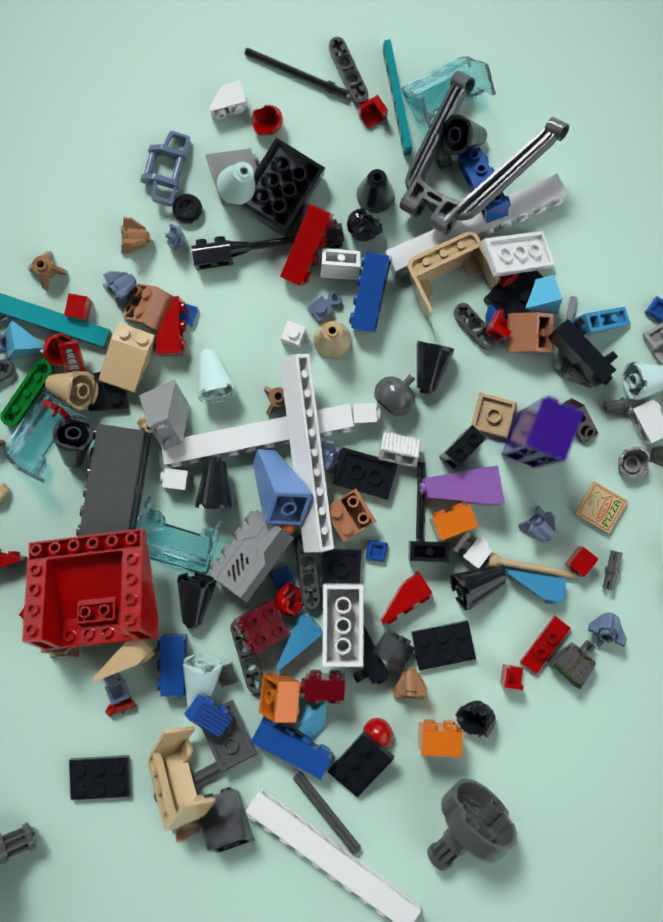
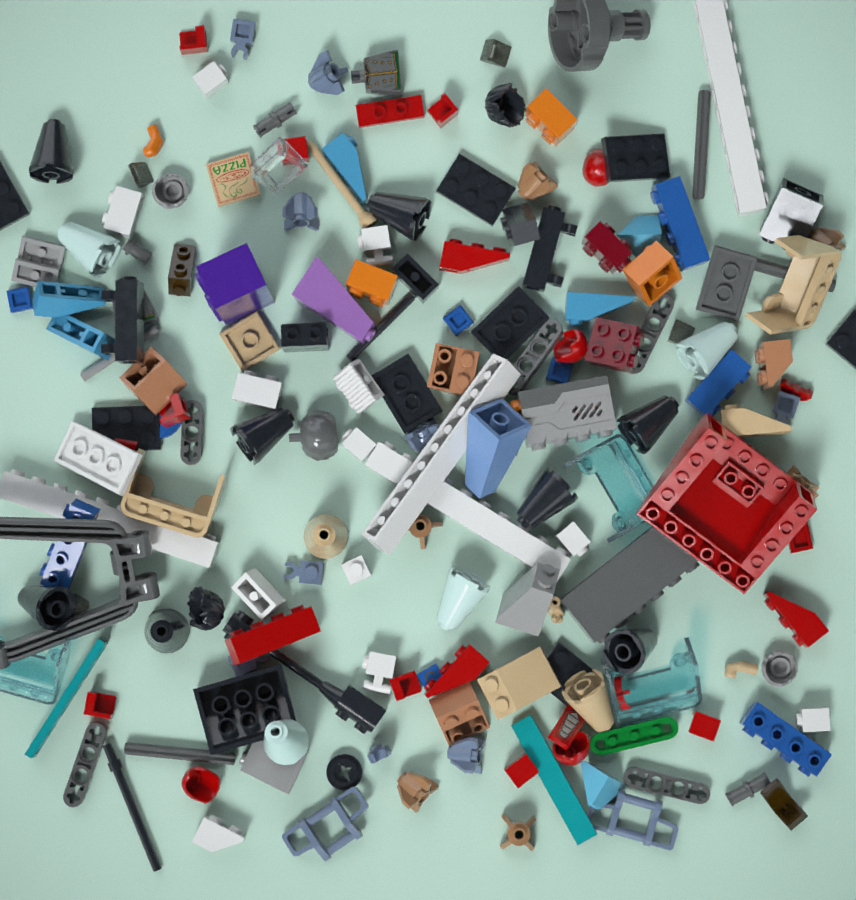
camera: 145 degrees left, 0 degrees up
(148, 712) = (773, 361): none -> nougat slope
(199, 293) = (405, 685): none -> red panel
(208, 715) = (724, 312): blue brick -> none
(223, 290) = (381, 666): none -> white brick
(303, 124) = (178, 753): none -> dark grey axle
(342, 625) = (543, 283): white brick -> none
(371, 291) = (256, 542): blue brick -> none
(459, 388) = (257, 390): none -> white brick
(514, 747) = (495, 53): none -> clear smoke slope
(545, 296) = (110, 401): medium azure slope -> none
(592, 541) = (270, 159): none -> clear tile
(633, 332) = (62, 299): none -> dark azure slope

